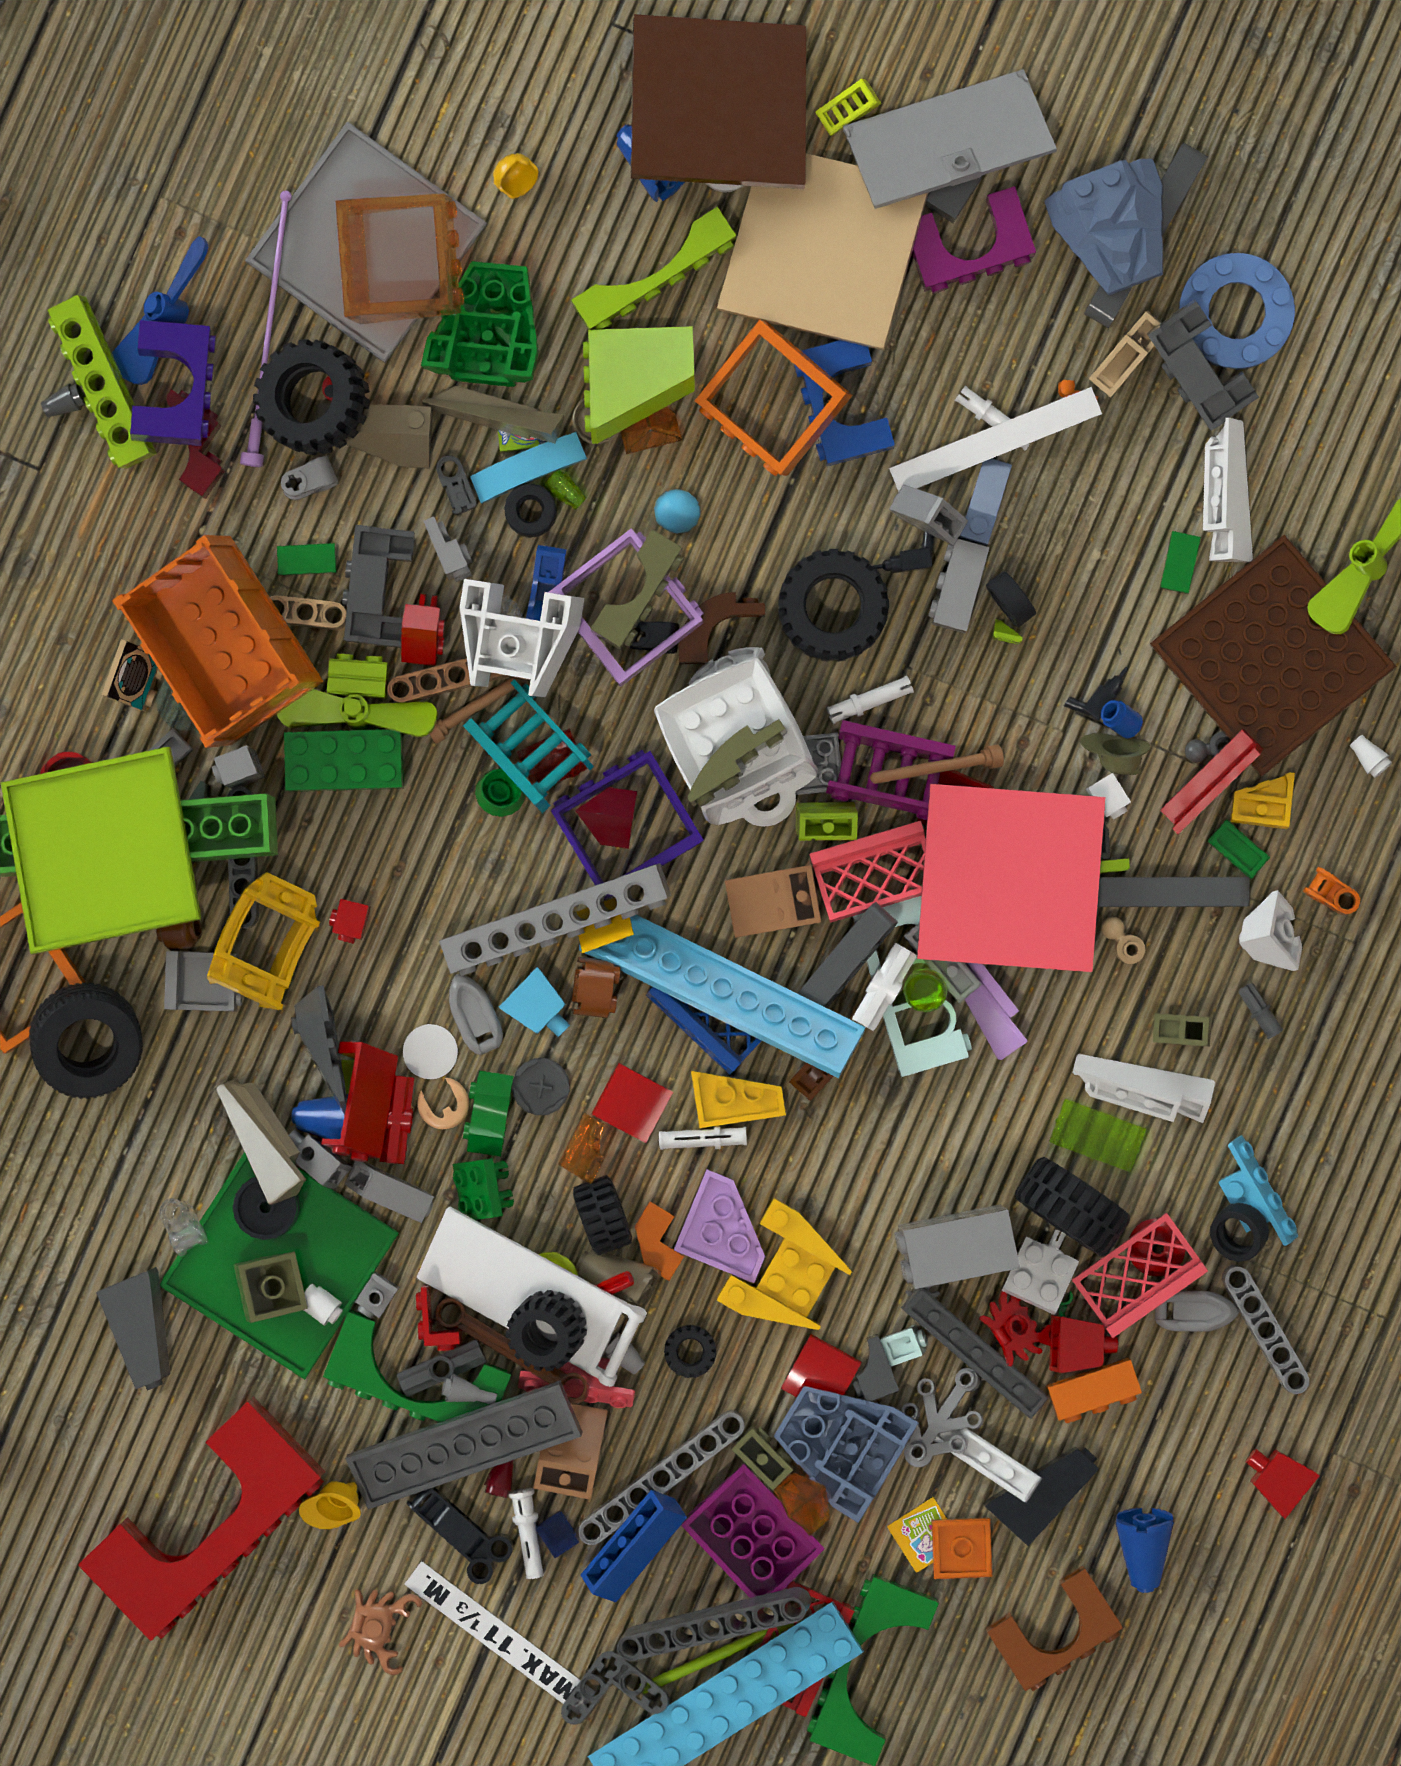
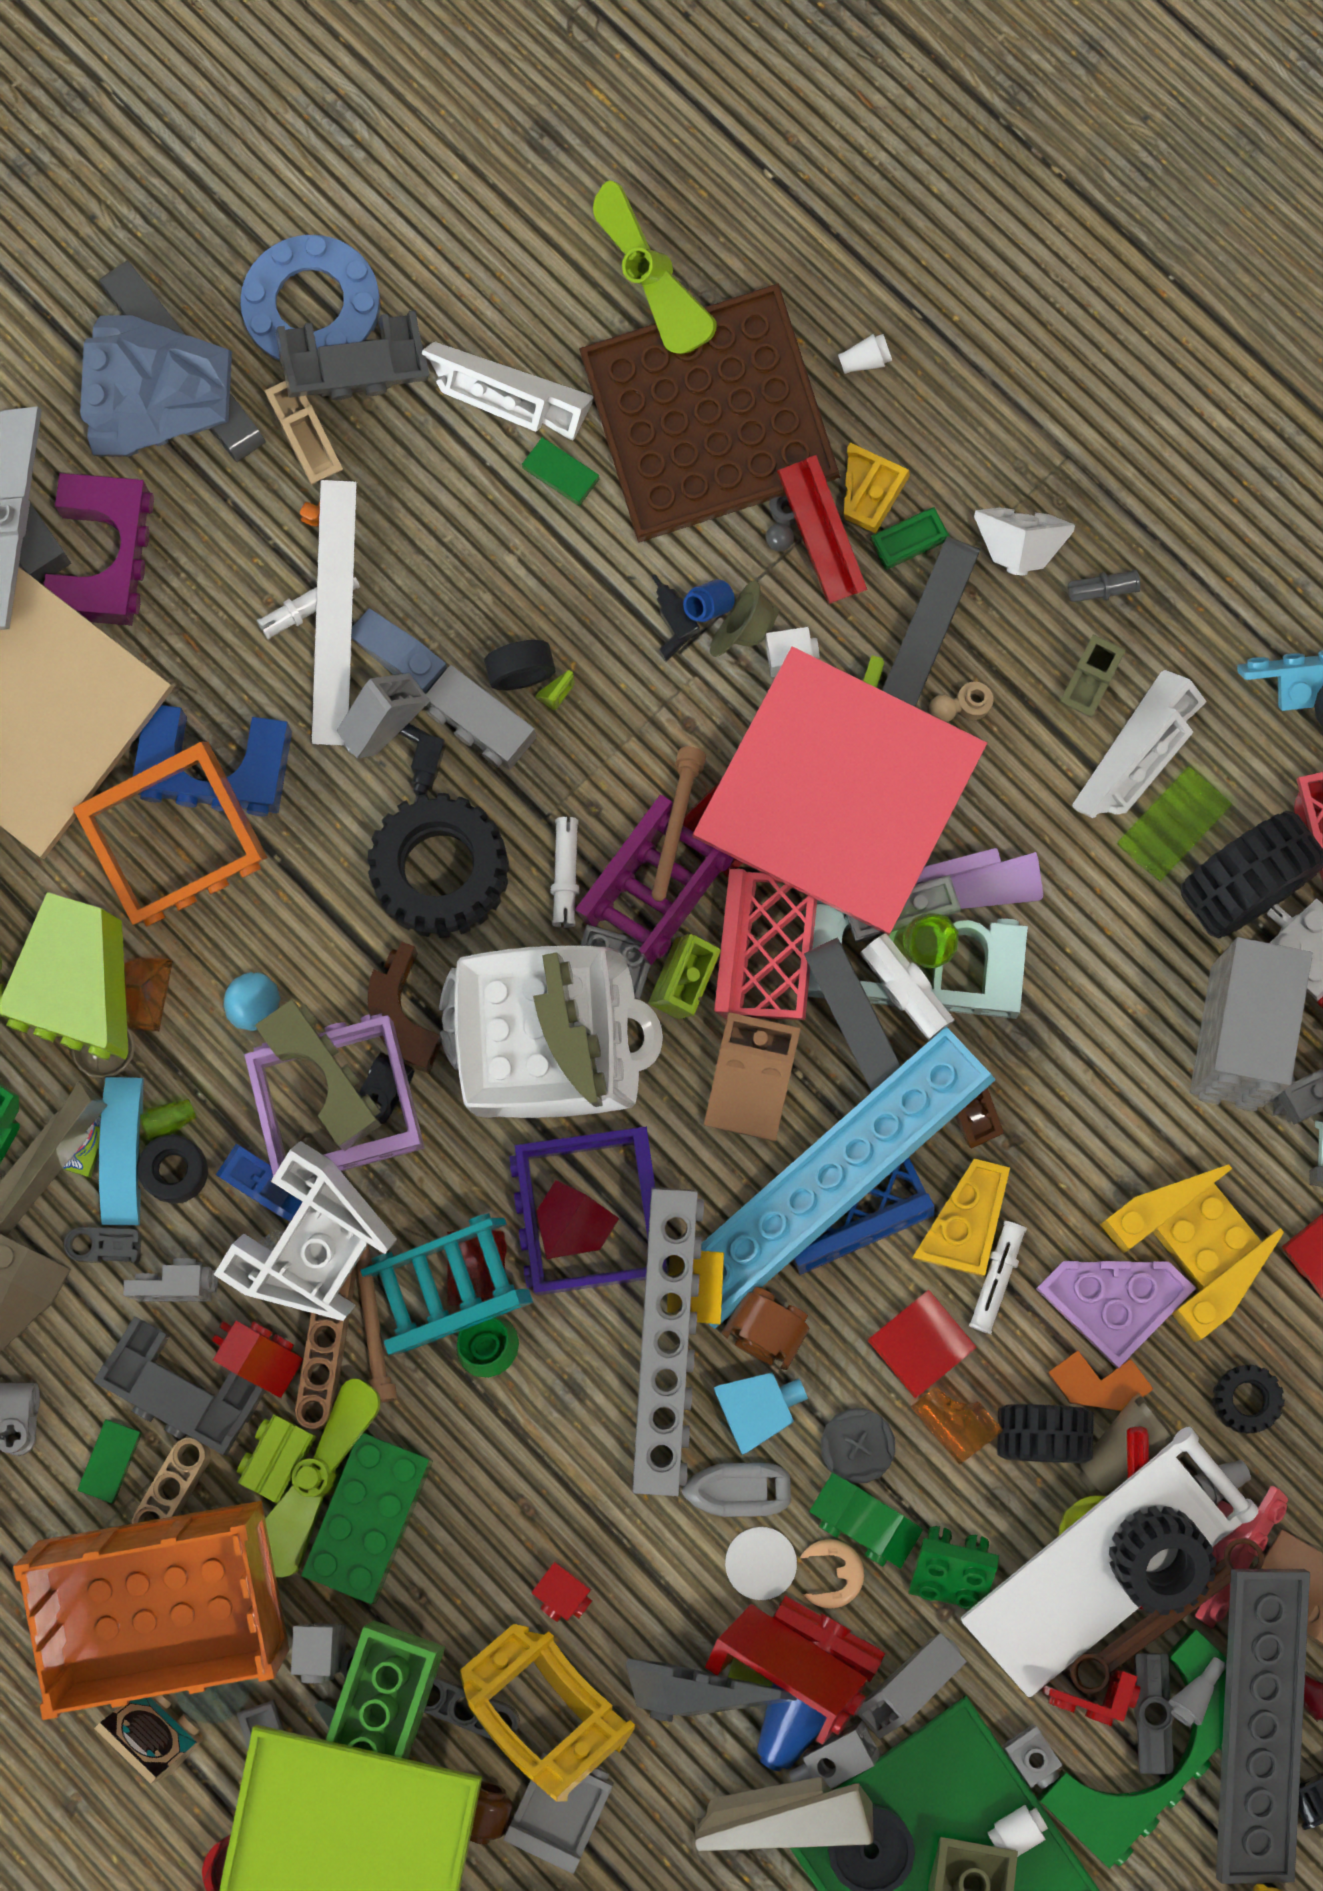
camera: 65 degrees left, 10 degrees down
(1330, 892) = (998, 459): orange piece -> none

